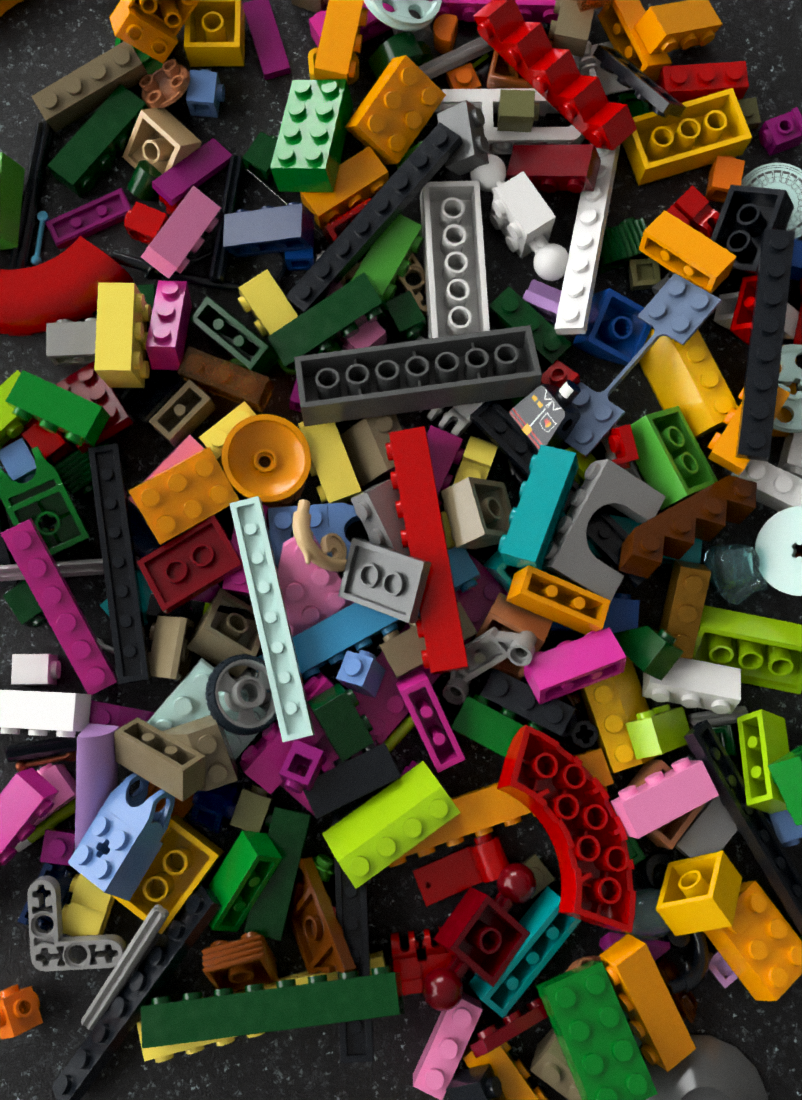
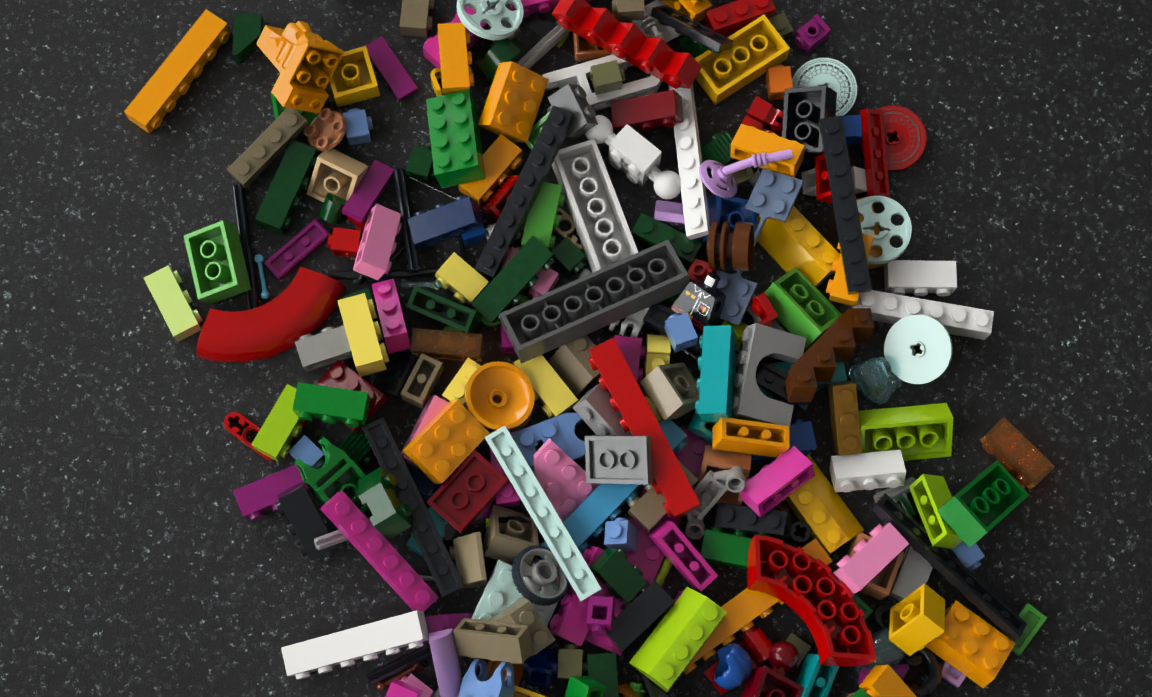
camera: 20 degrees left, 5 degrees down
(25, 605) = (349, 560): dark green brick -> none
(35, 669) = (370, 608): white brick -> none
(53, 446) = (317, 429): red brick -> none
(79, 560) = (388, 512): none -> dark green brick
(235, 303) = (436, 284): none -> clear light blue hinge
(310, 550) = (560, 454): tan plant -> none
(445, 32) = (530, 28): orange brick -> none
(448, 880) = (733, 667): none -> blue hair
(463, 78) = (555, 59): orange plate -> none
(511, 443) = (680, 332): none -> medium blue brick
(600, 352) = (731, 245): none -> reddish brown wheel
(621, 266) = (723, 174): none -> lavender dish
(650, 650) = (829, 453): dark green slope -> none
(658, 731) = (853, 512): lime brick -> none

